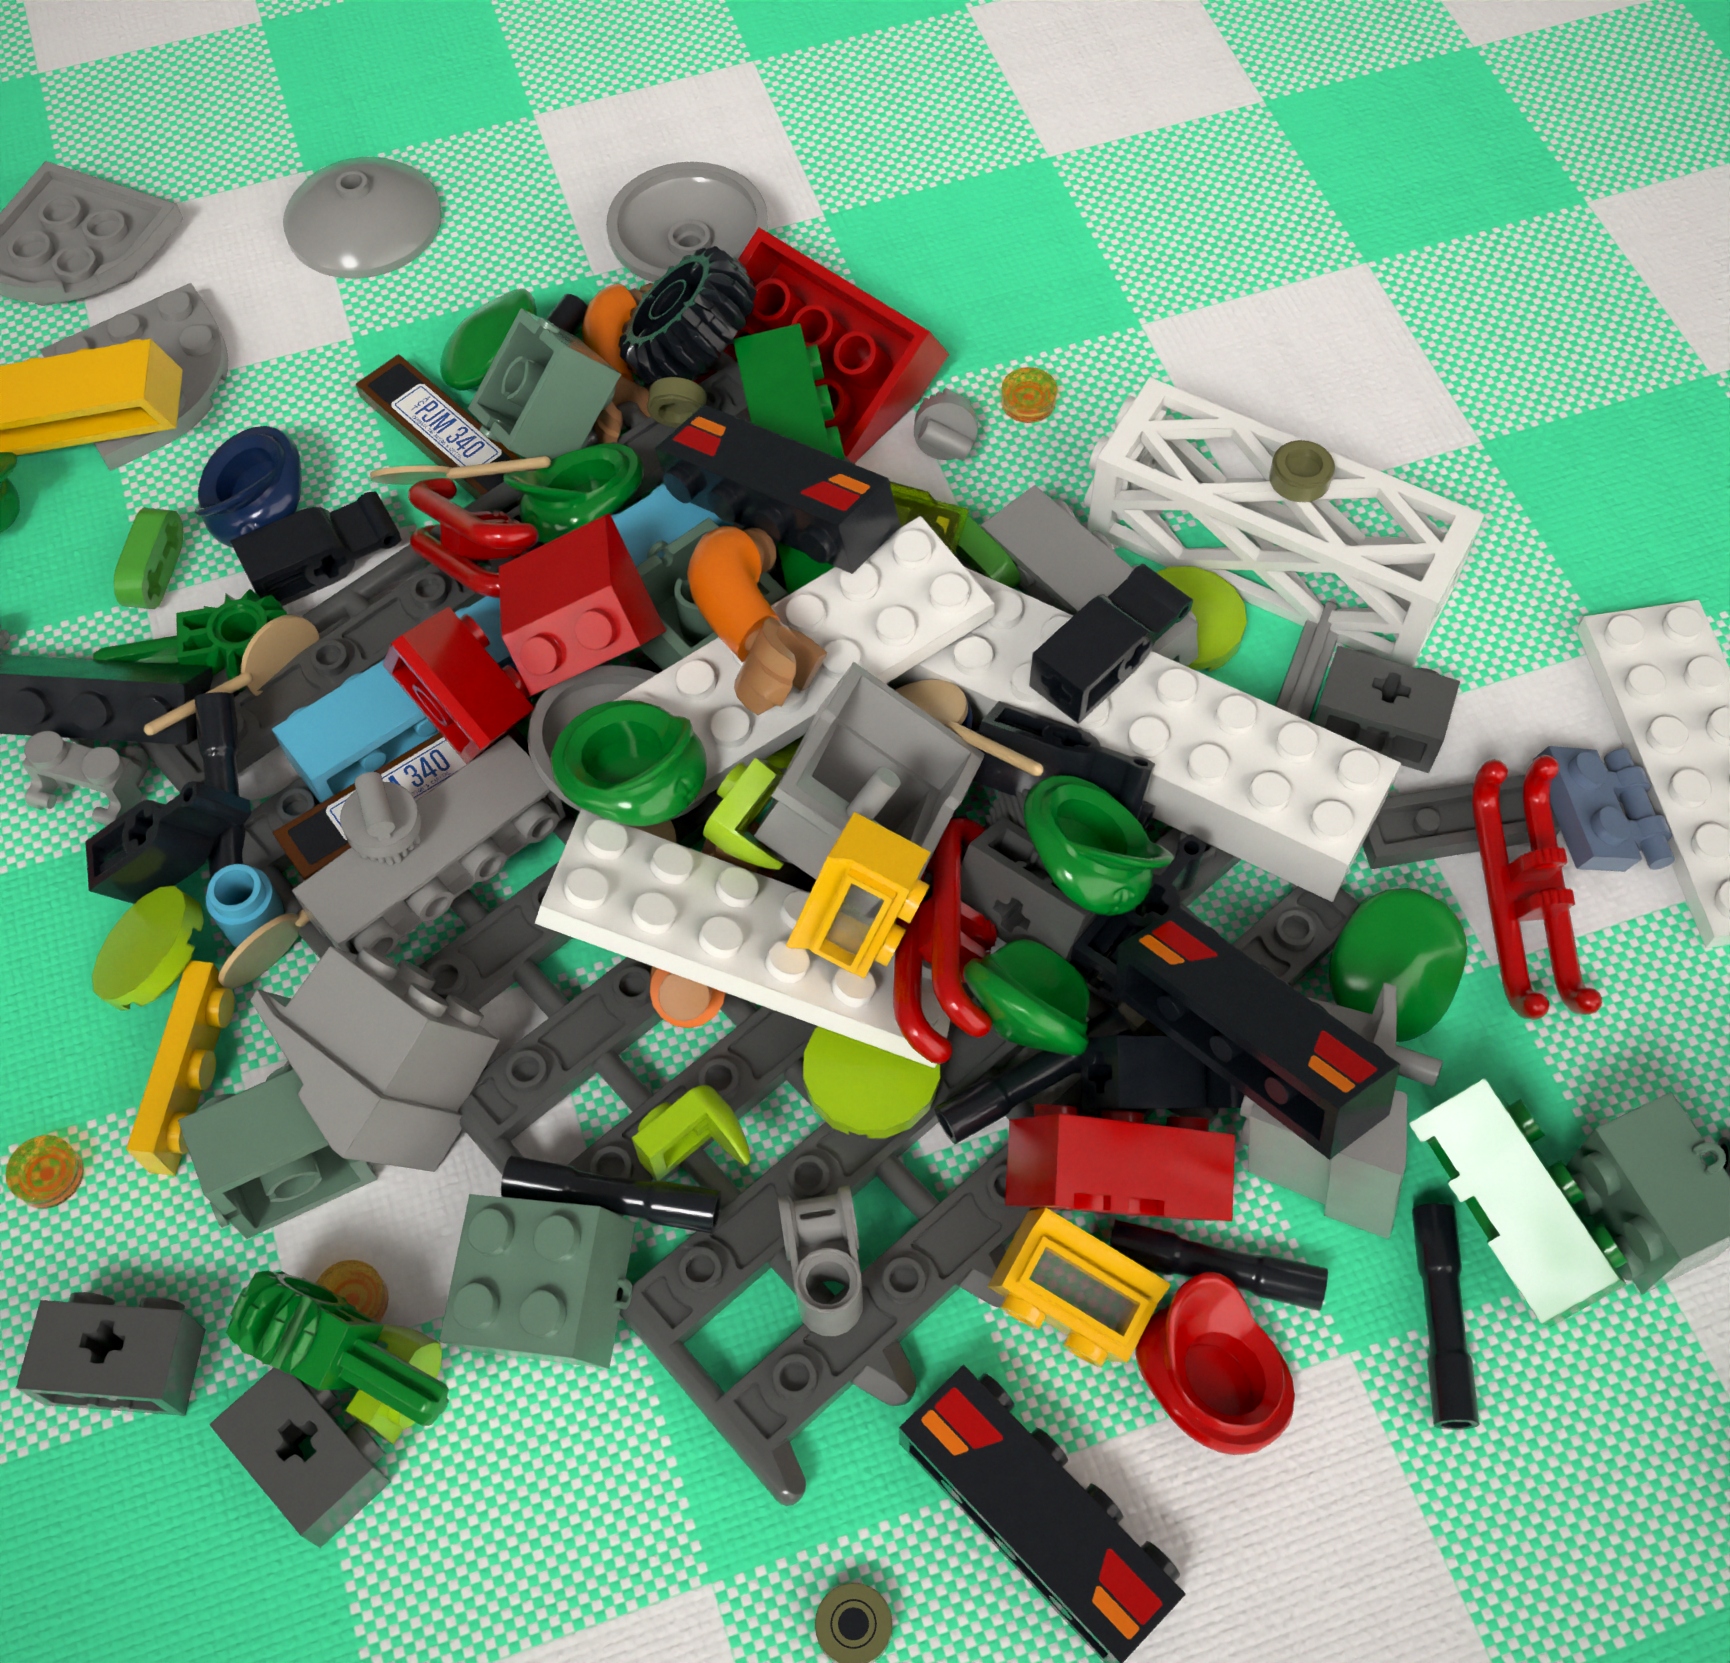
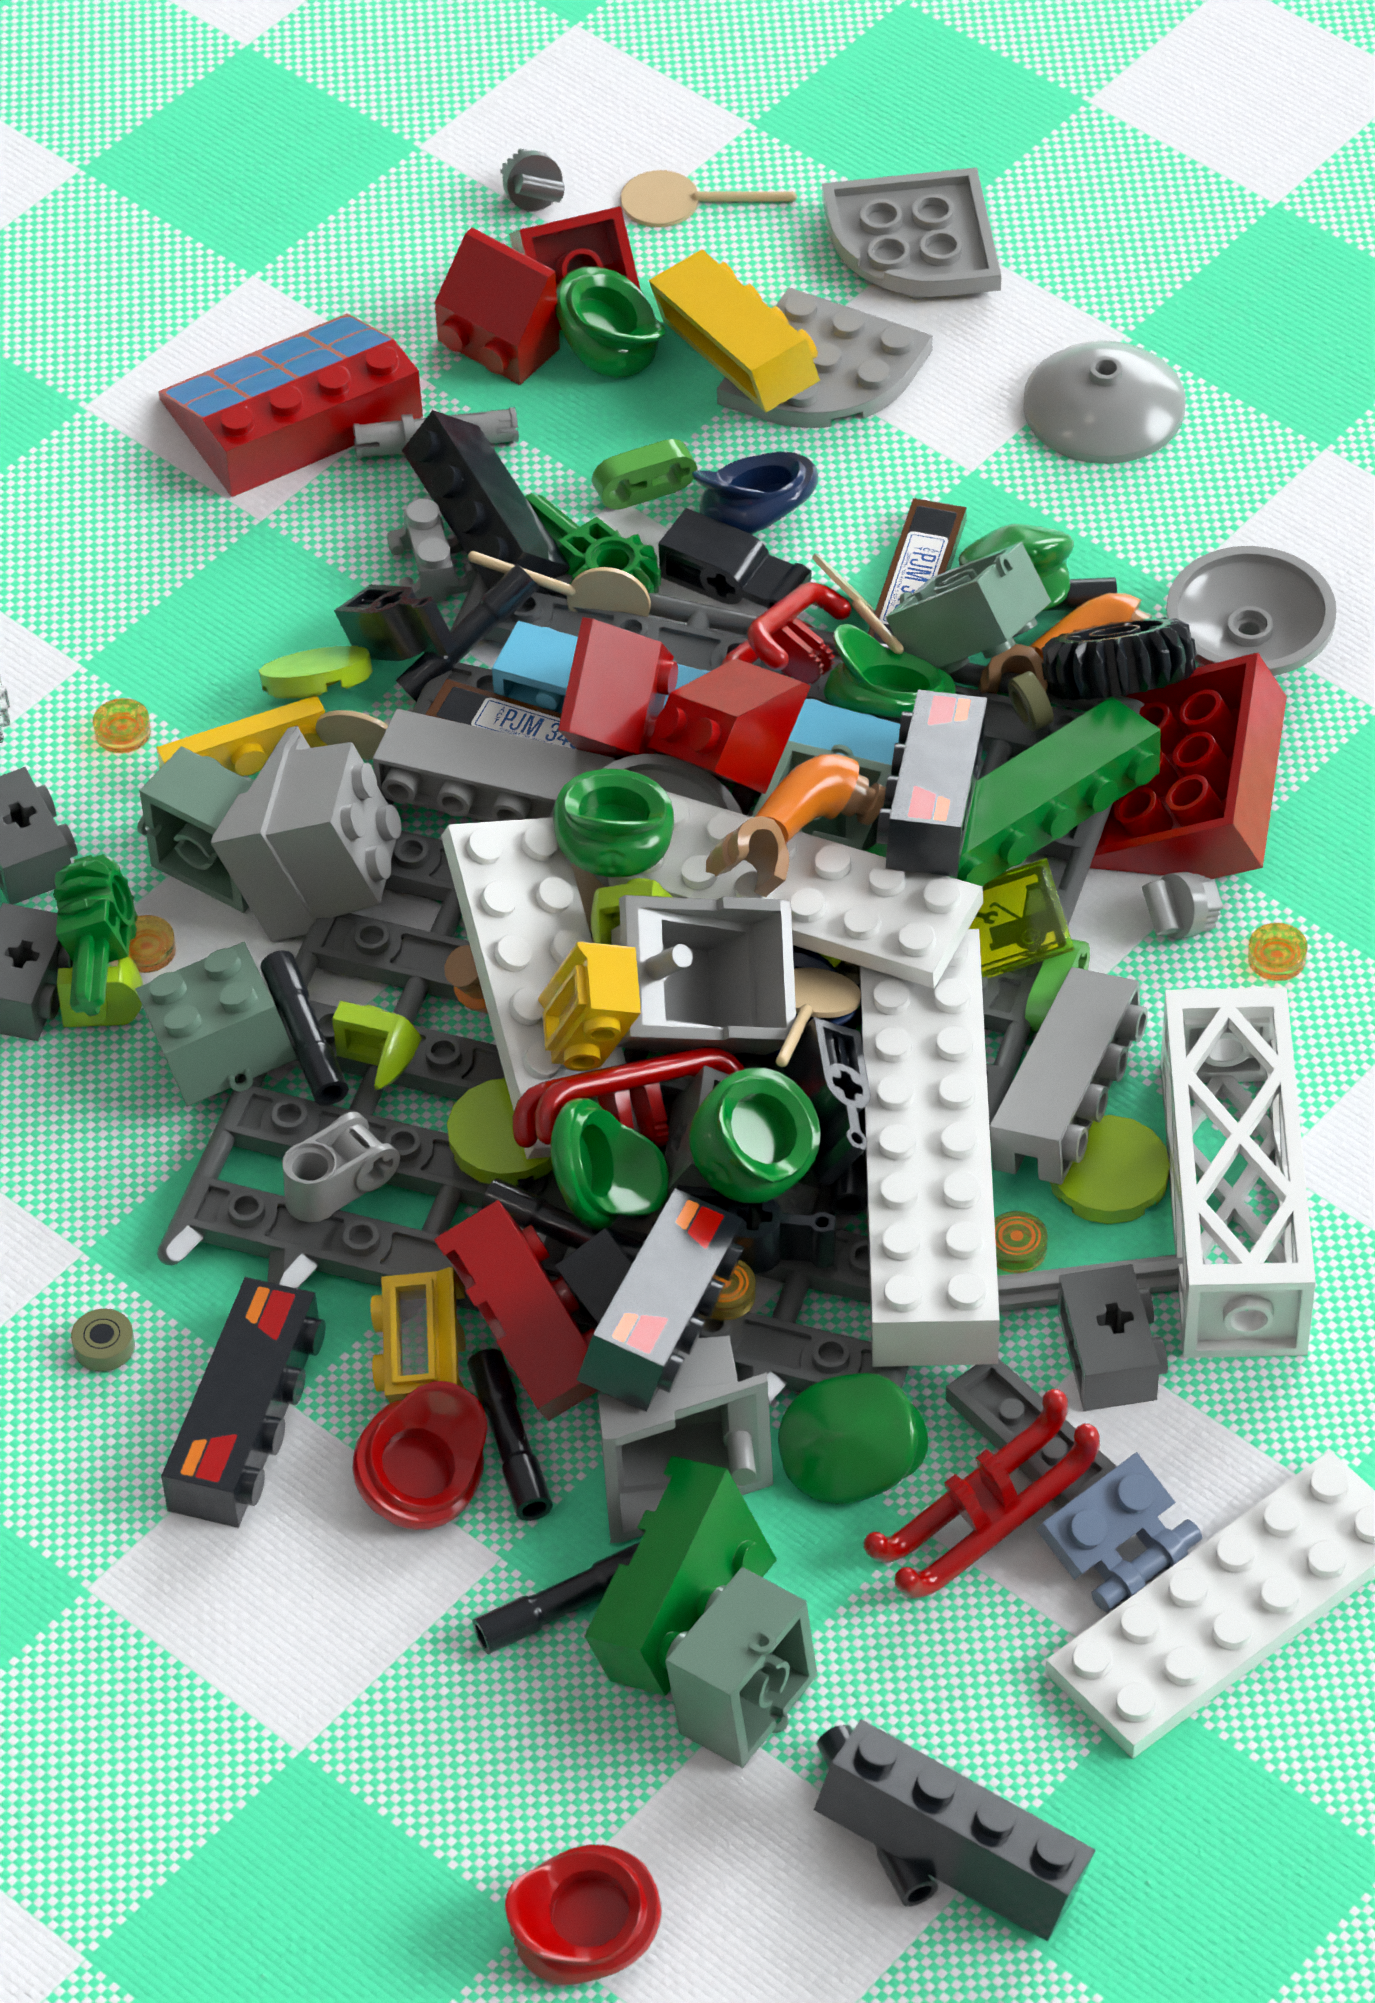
camera: 60 degrees right, 10 degrees down
(242, 901) = (382, 691): medium azure brick -> none
(380, 819) = (477, 718): light grey piece -> none
(1106, 642) = (950, 1061): black piece -> none
(1301, 471) = (1253, 1130): olive tile -> none

